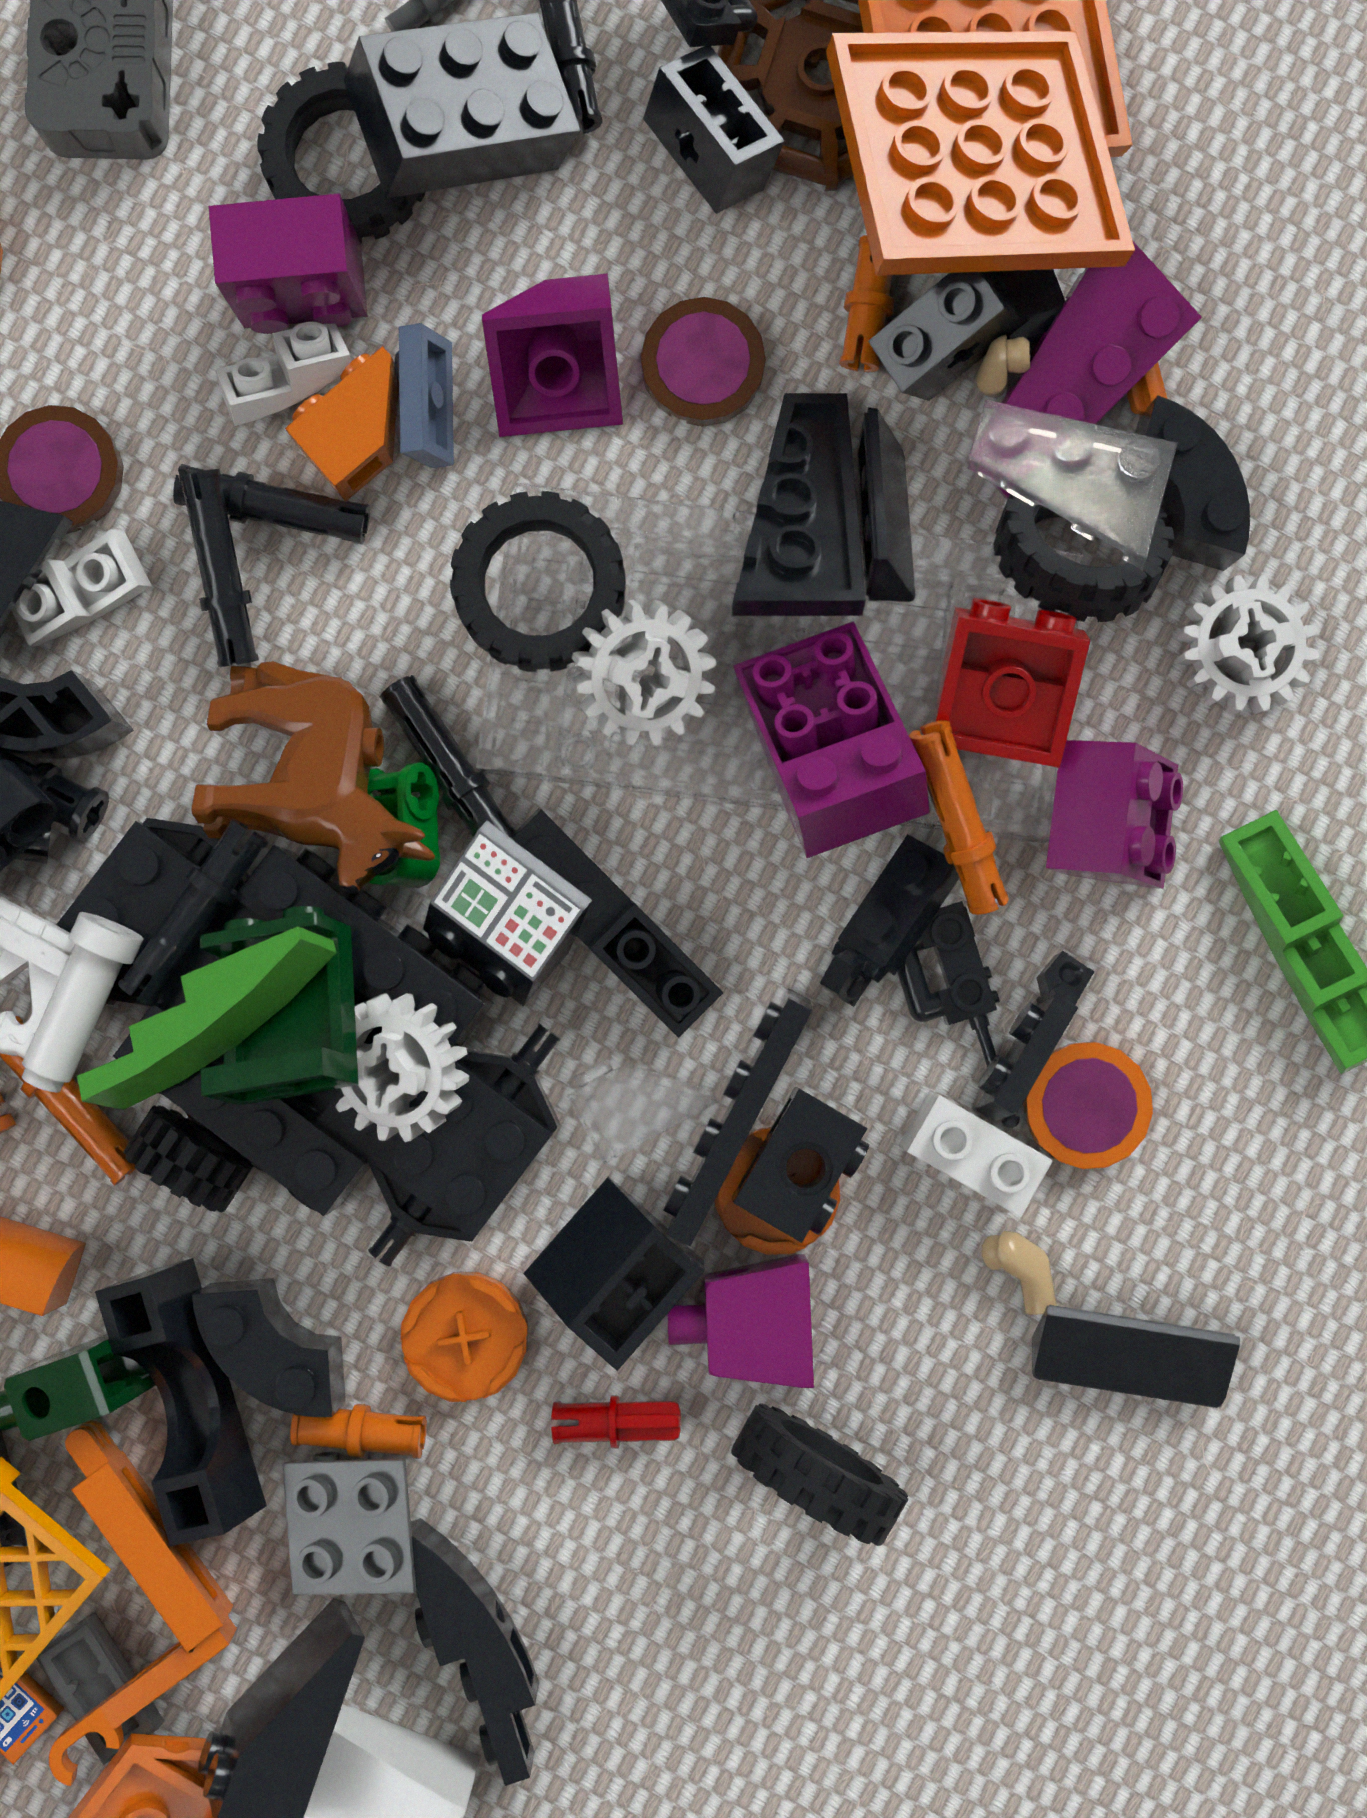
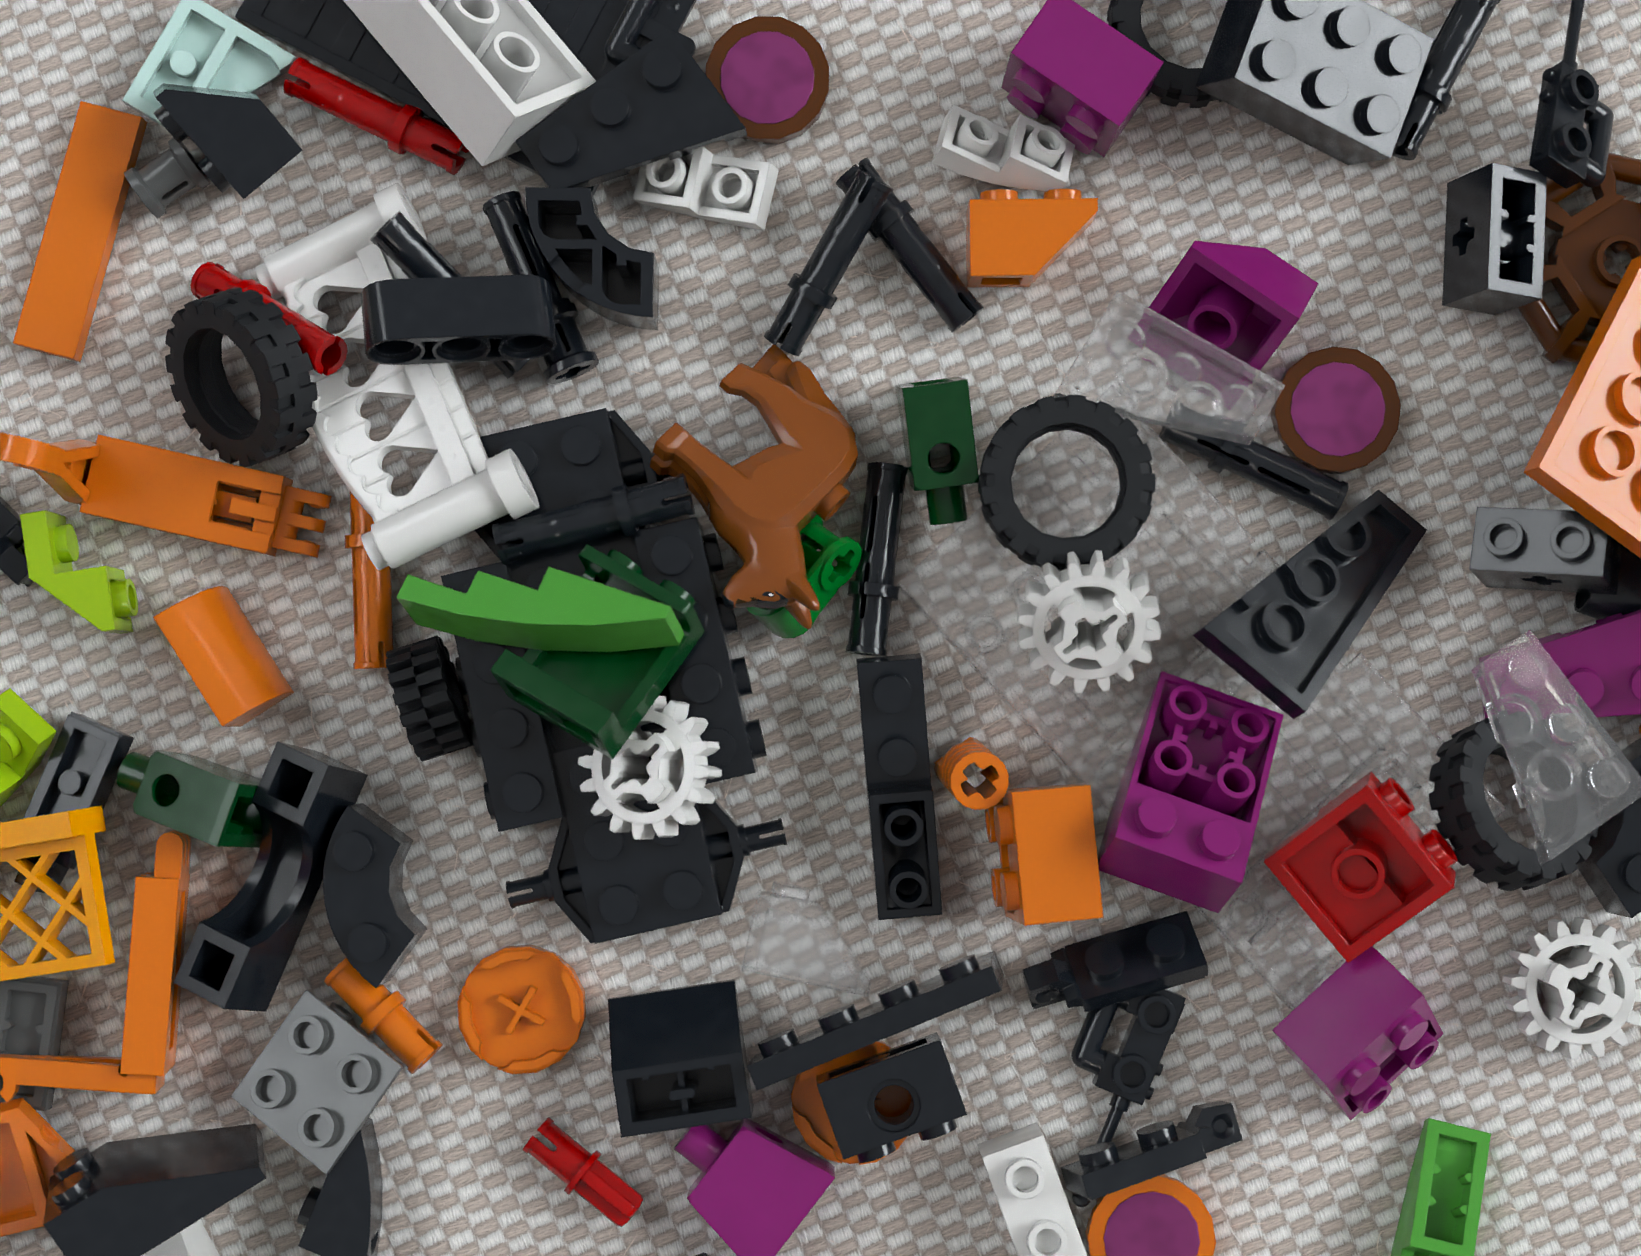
camera: 45 degrees right, 0 degrees up
(399, 611) = (933, 415): none -> dark green torso
(425, 395) = (1108, 247): sand blue plate -> none
(505, 915) = (826, 716): slope -> none
(552, 435) = (1169, 376): none -> clear wing
(655, 846) = (950, 773): none -> orange hinge
(743, 434) = (1266, 468): none -> black pin
(760, 878) = (1045, 854): none -> orange slope
(867, 308) = (1498, 477): orange pin -> none
(884, 513) = (1377, 649): black slope -> none
(955, 805) = (1229, 956): orange pin -> none
(1002, 358) = (1568, 607): tan arm -> none

